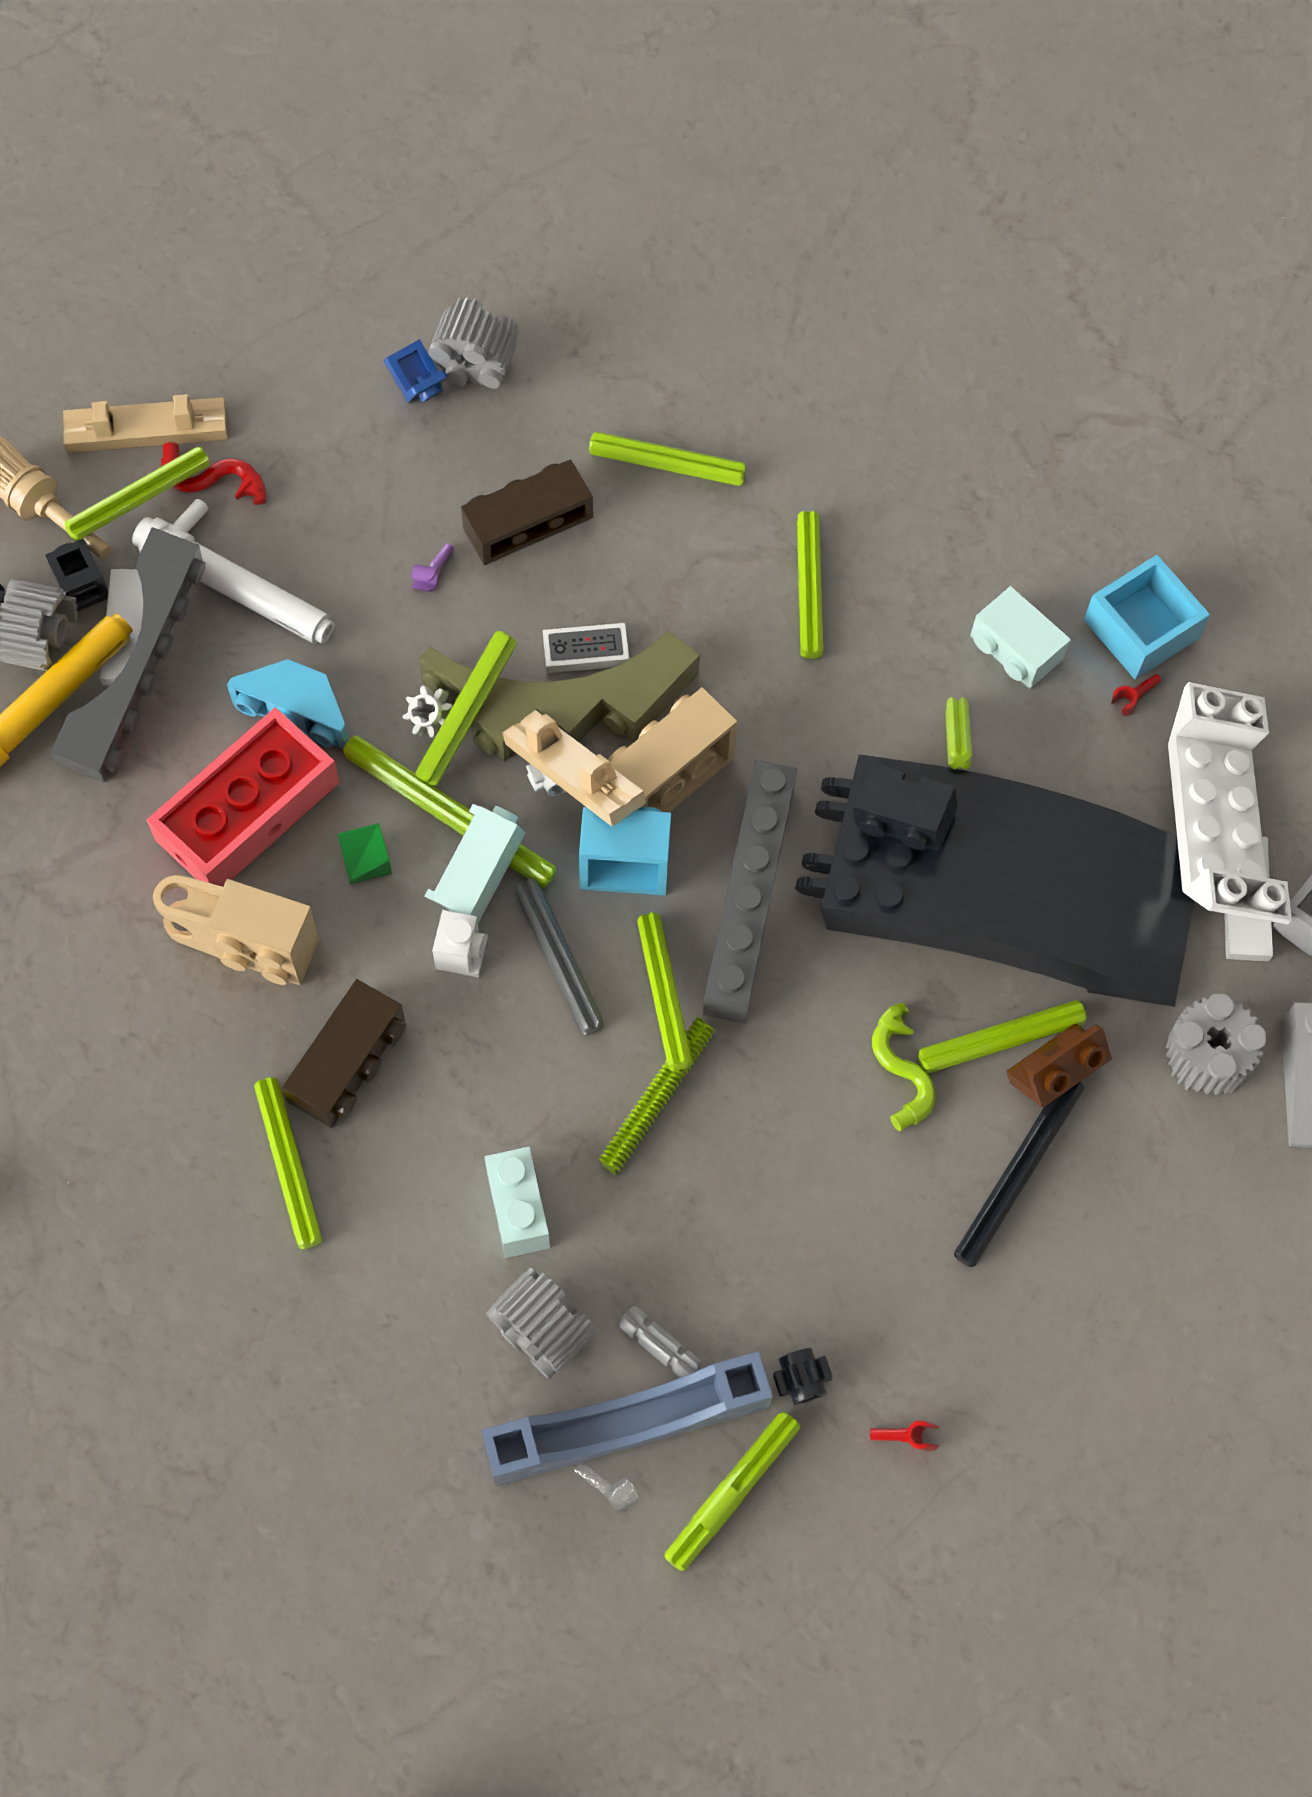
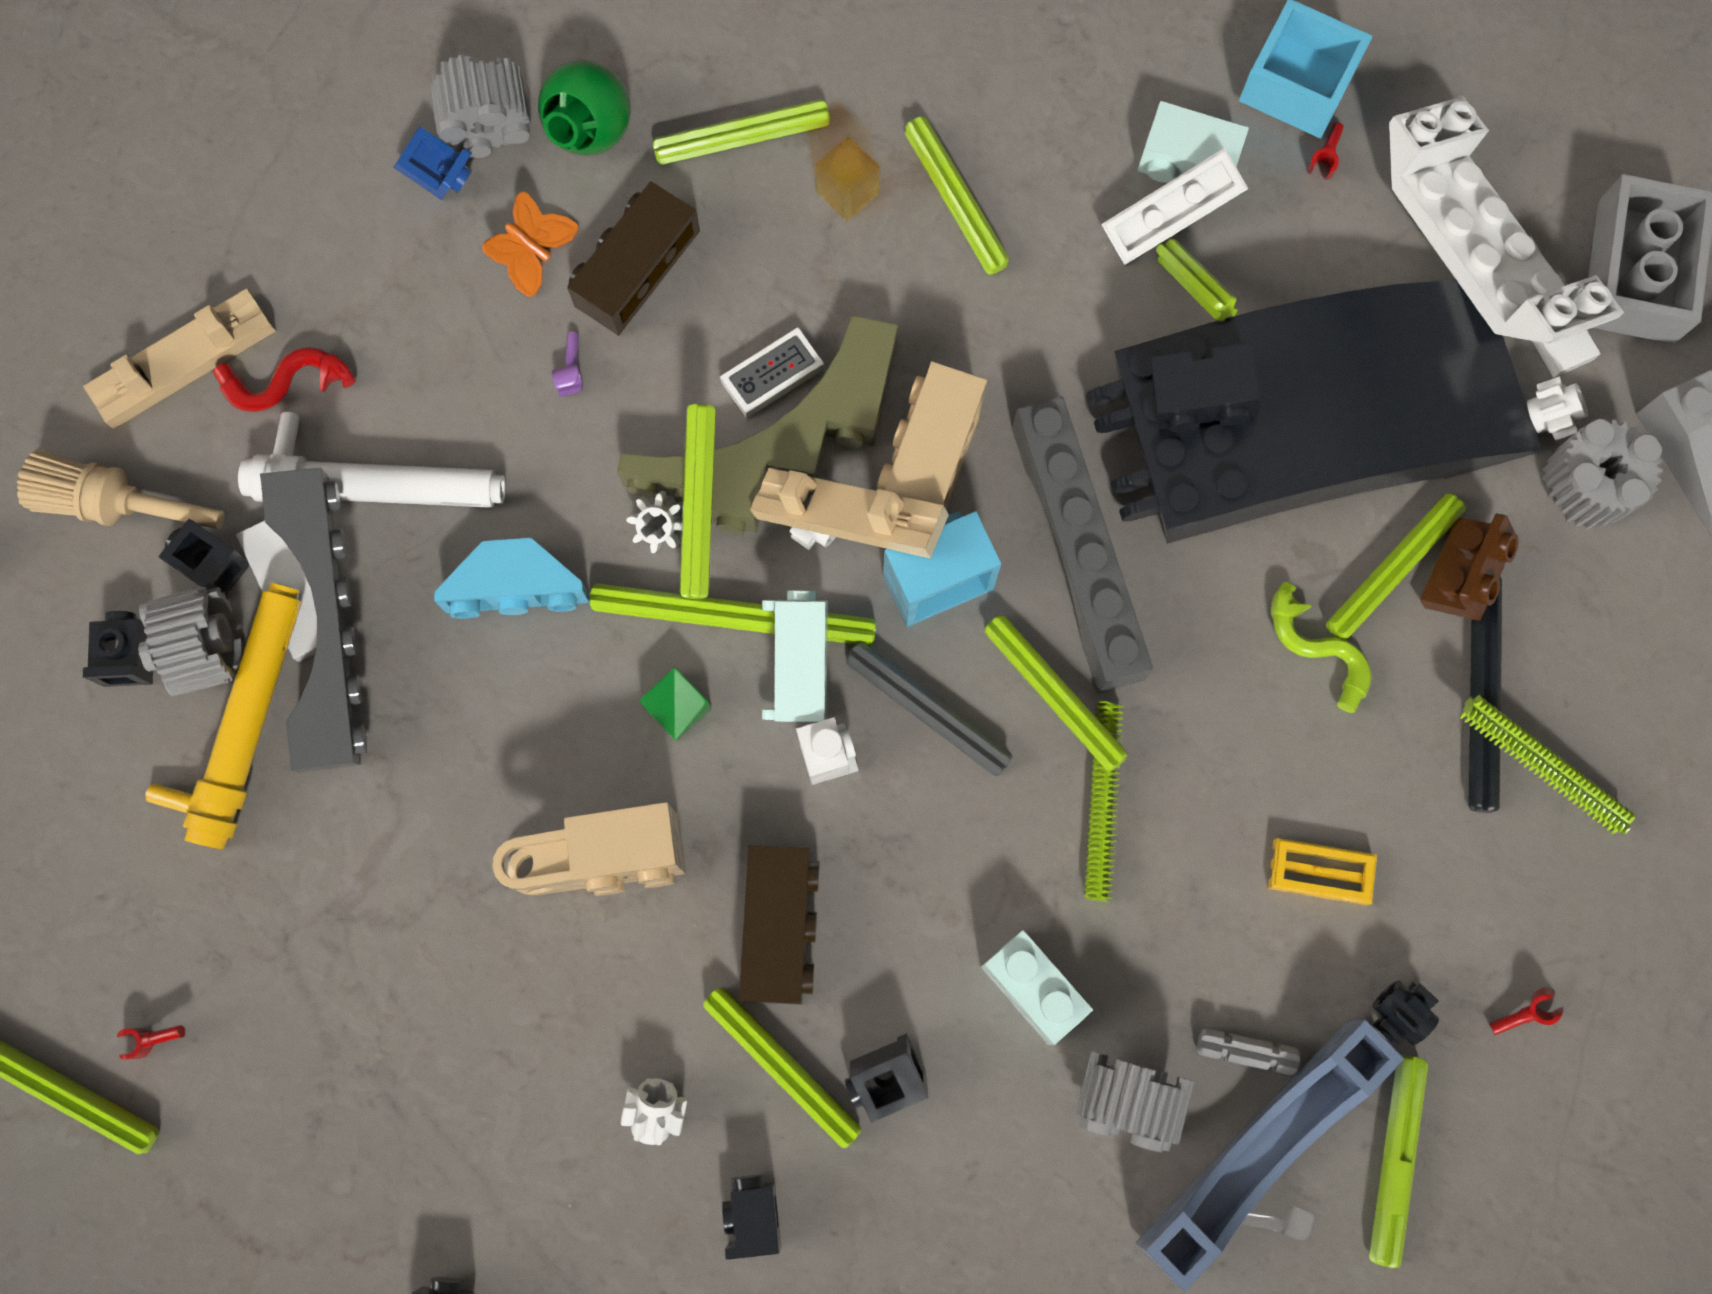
camera: 25 degrees left, 10 degrees up
(136, 493) = (217, 441): lime axle -> none
(171, 1139) = (653, 1111): none -> white gear
(198, 1258) = (751, 1218): none -> black brick
(244, 800) = (522, 715): brick -> none
(343, 1213) = (887, 1096): none -> black brick
(452, 460) = (525, 242): none -> orange piece
(551, 383) = (584, 107): none -> green brick
(727, 530) = (847, 178): none -> clear yellow brick
(790, 1252) = (1280, 865): none -> yellow tile
(976, 672) = (1174, 206): none -> white tile
(1033, 1249) = (1548, 764): none -> lime axle
(1206, 975) = (1557, 408): none -> white gear

